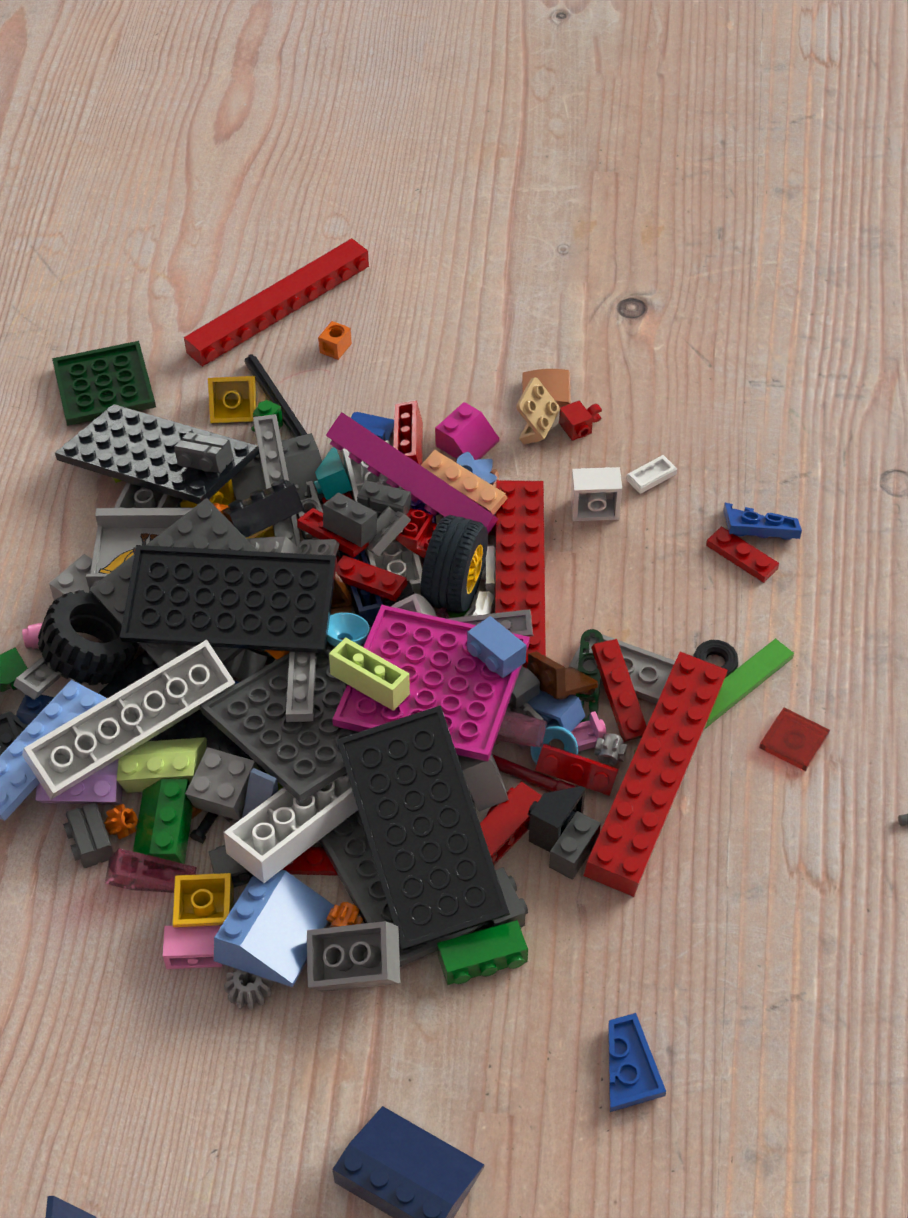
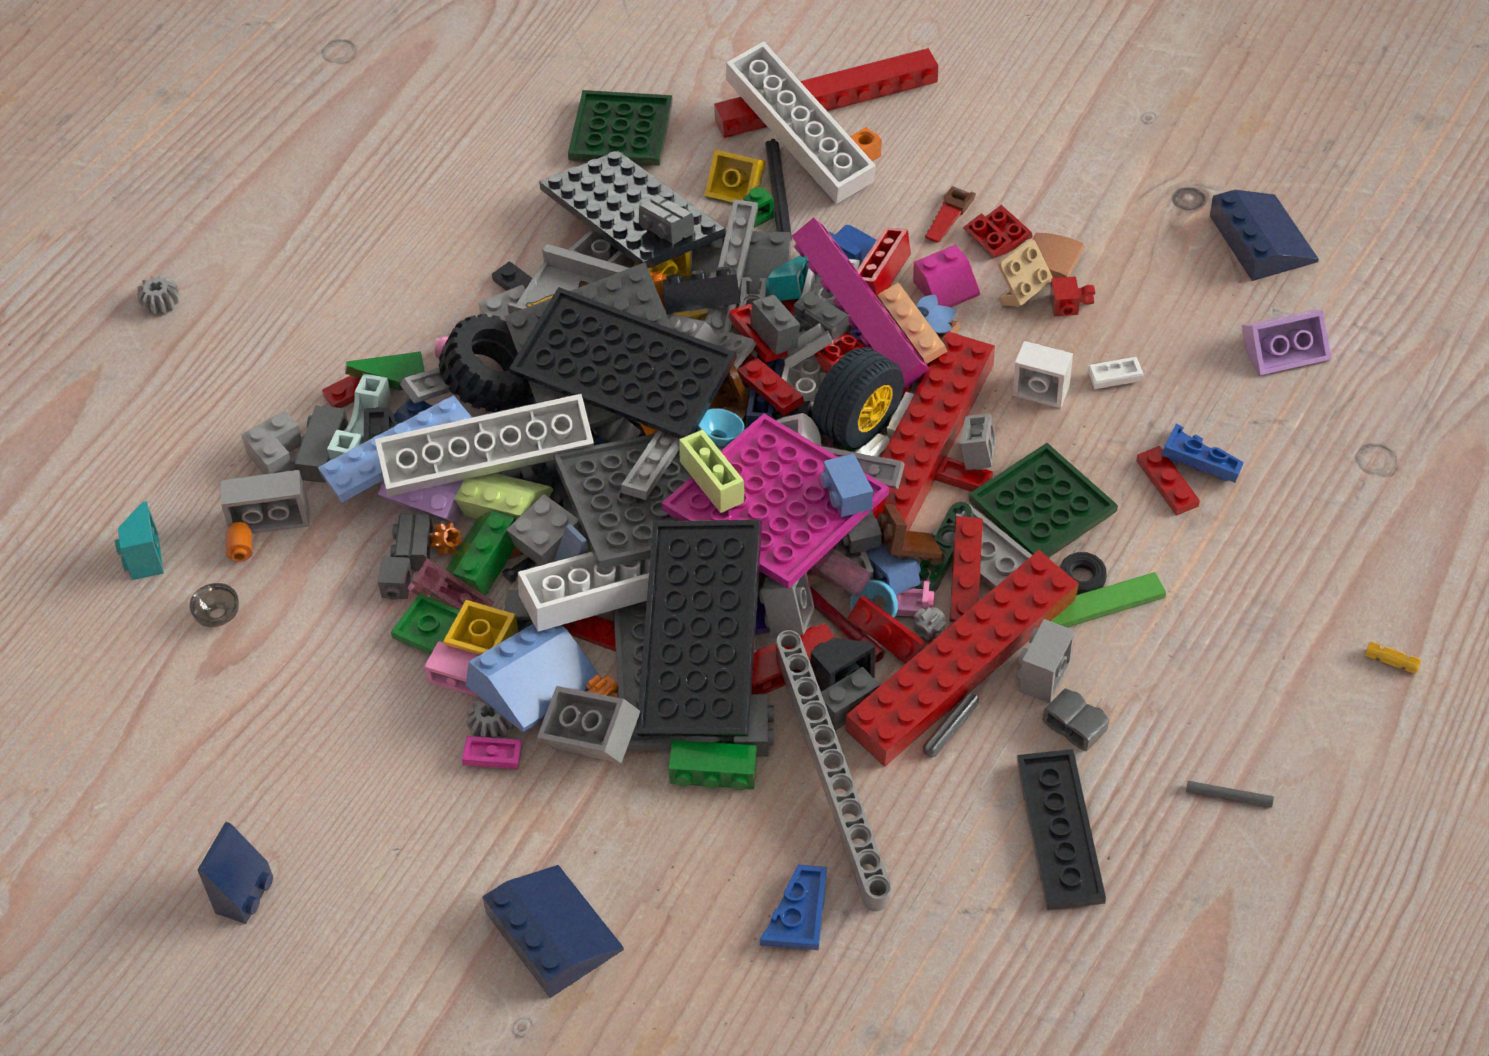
camera: 25 degrees right, 0 degrees up
(67, 551) = (510, 276): none -> black plate
(88, 877) = (395, 577): none -> dark grey brick
(142, 912) = (425, 623): none -> green plate
(266, 1017) = (492, 752): none -> dark pink plate
(273, 332) = (800, 122): none -> white brick
(437, 377) = (949, 212): none -> piece
(488, 380) = (998, 231): none -> red slope
(569, 605) = (955, 474): none -> red tile
(571, 571) = (978, 442): none -> light grey brick
(599, 928) = (833, 778): none -> light grey beam
(650, 607) = (1043, 502): none -> dark green plate
(673, 837) = (951, 724): none -> dark grey axle
(706, 321) = (1260, 233): none -> dark blue slope
(731, 749) = (1045, 660): none -> light grey brick
(778, 404) = (1287, 341): none -> lavender slope
(780, 793) = (1076, 719): none -> dark grey brick
(794, 739) = (1122, 674): clear red tile -> none
(818, 900) = (1060, 830): none -> black plate

